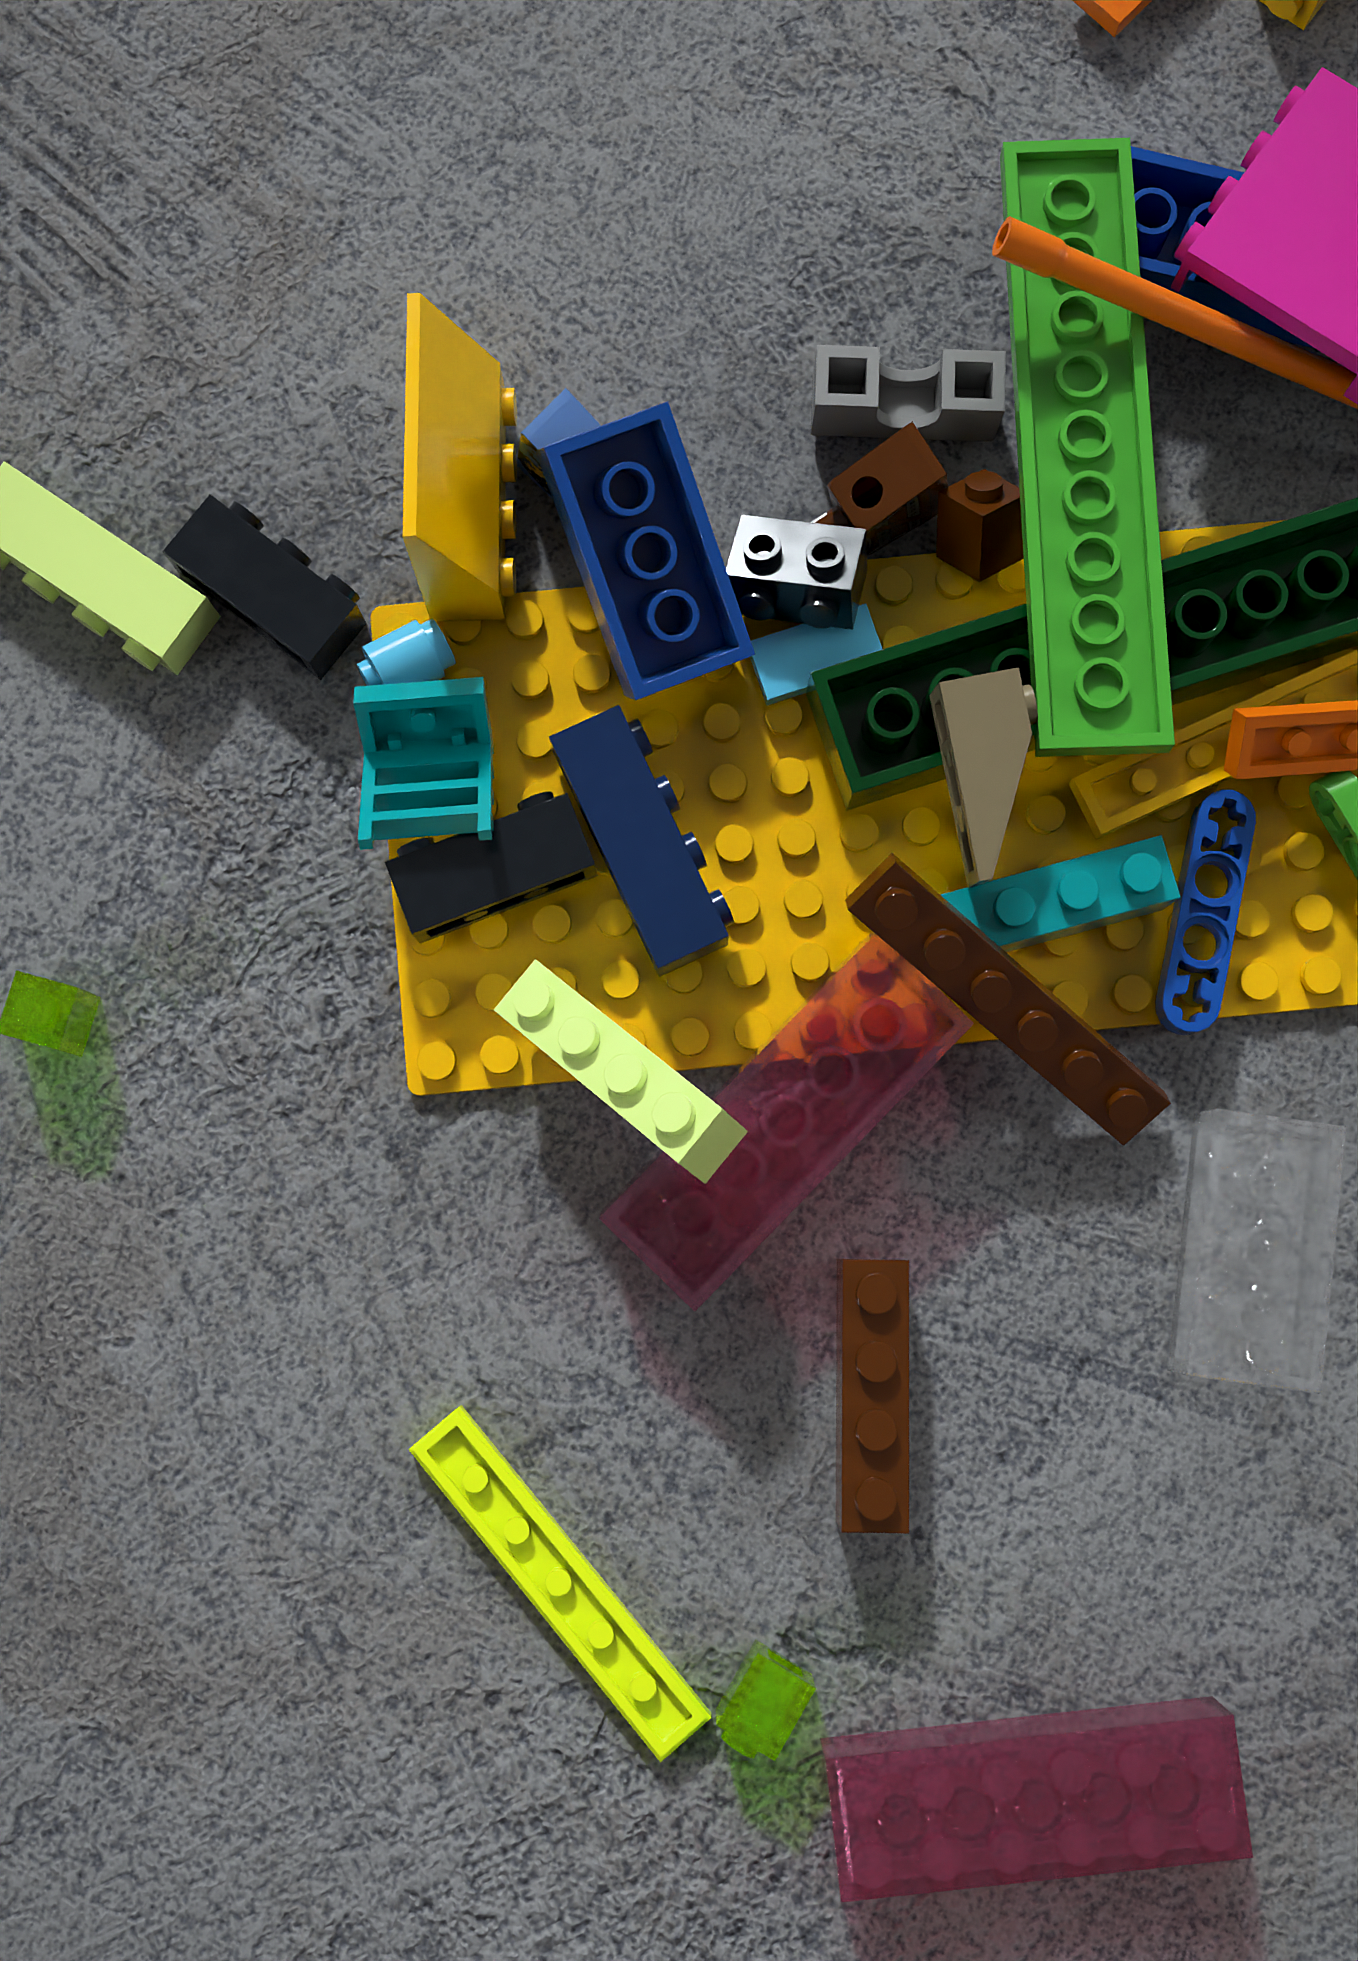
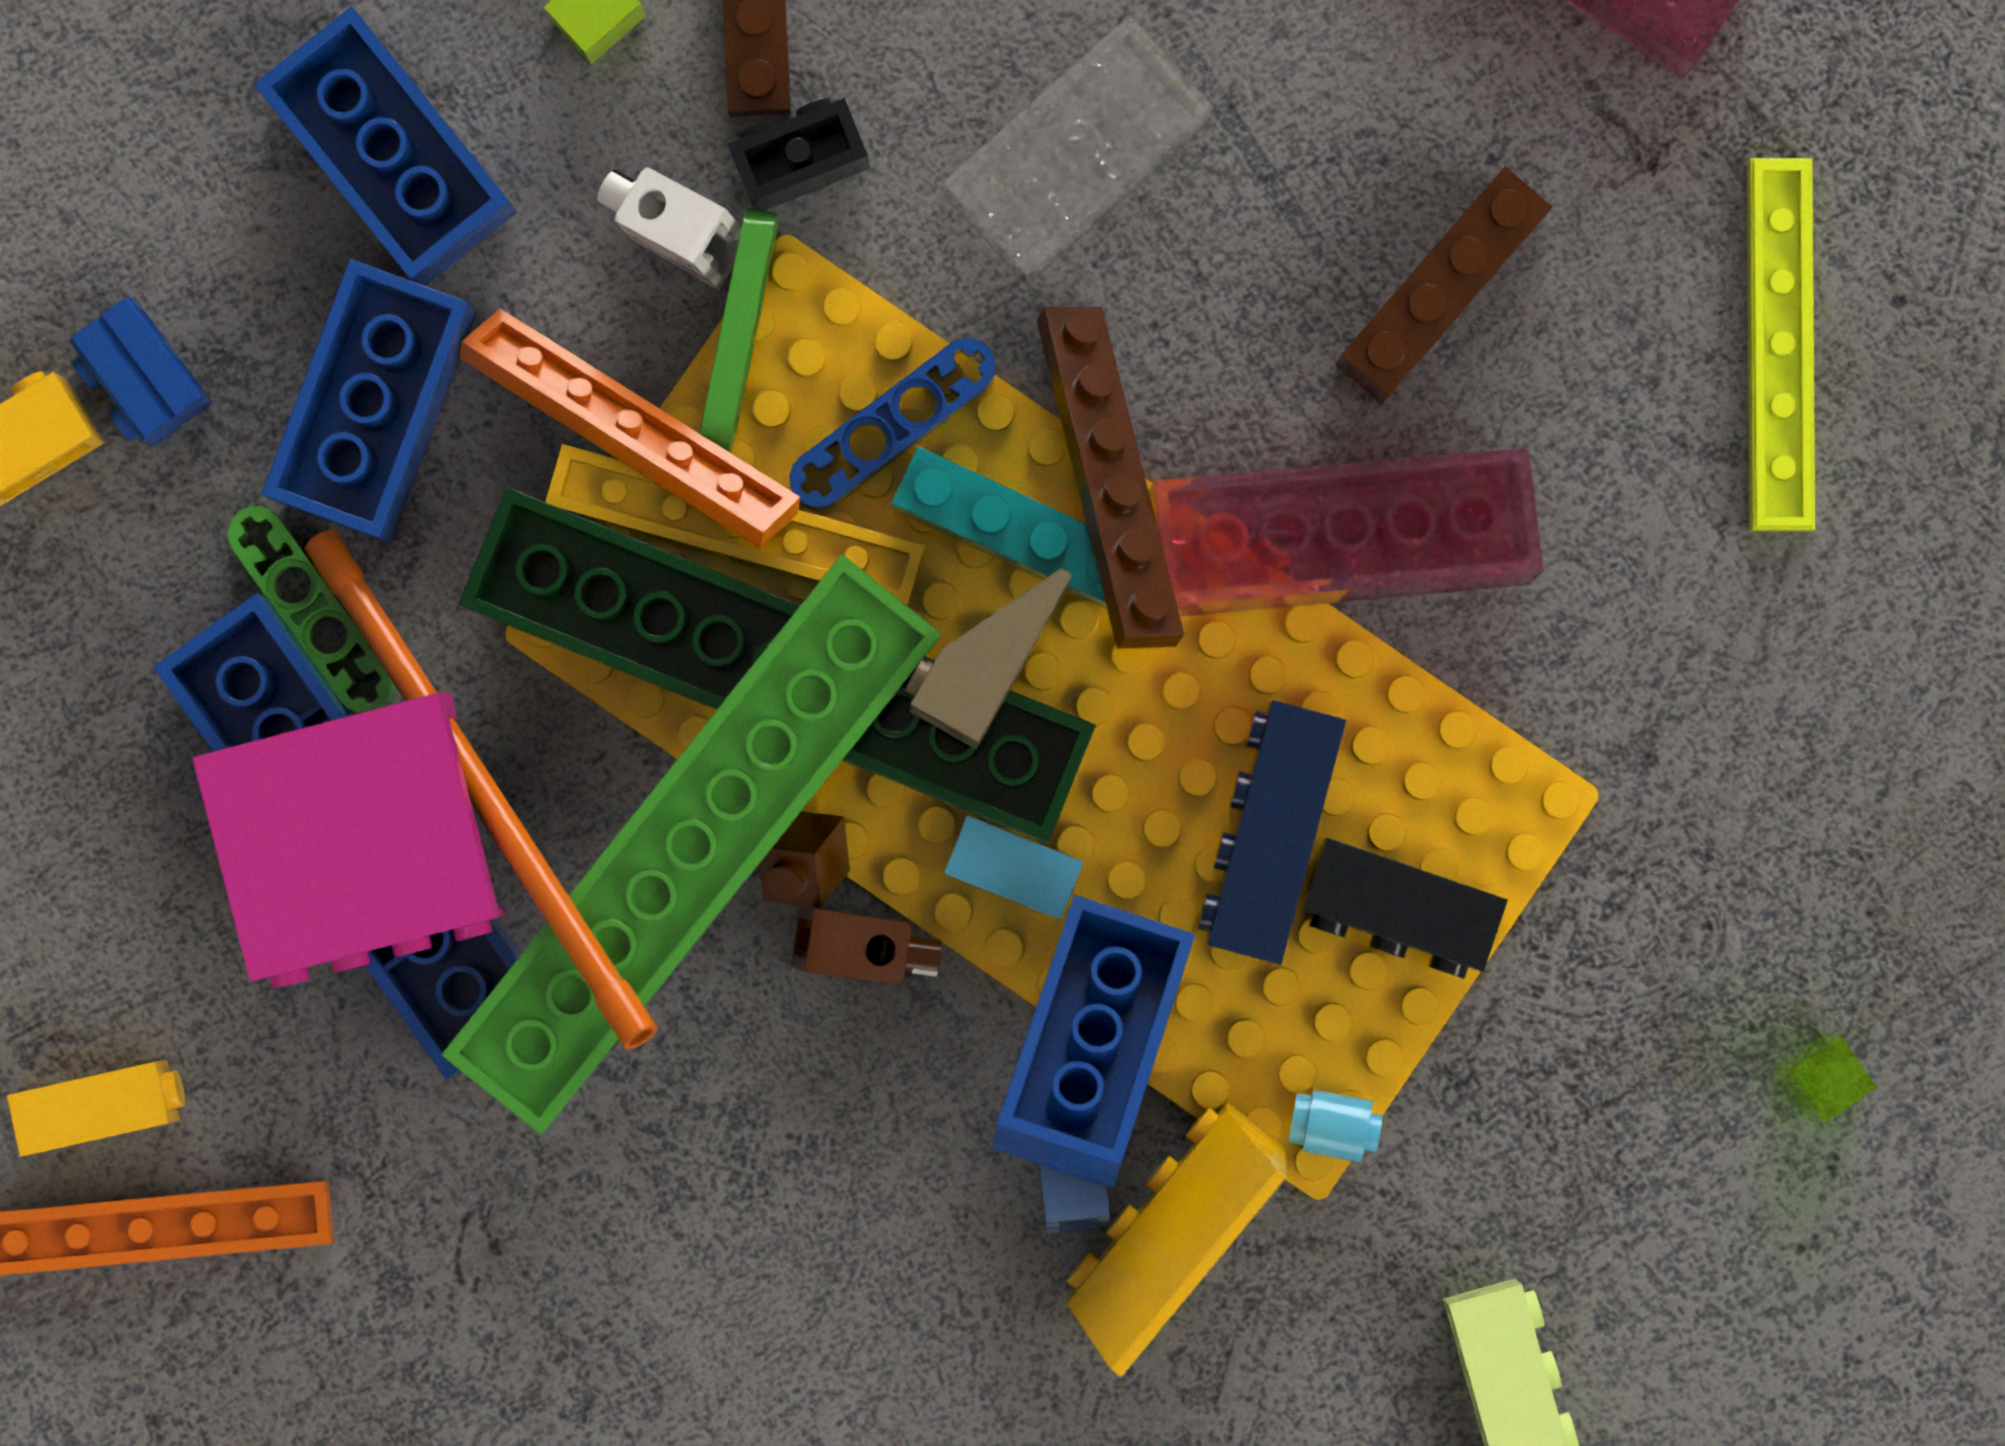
camera: 140 degrees left, 5 degrees up
(267, 584) = (1389, 1284): black brick -> none
(425, 760) = (1373, 1046): teal plate -> none
(621, 1071) = (1441, 664): yellowish green brick -> none
(763, 1702) = (1704, 138): clear neon green brick -> none
(798, 571) = (981, 938): black brick -> none
(946, 401) = (767, 1013): light grey arch -> none

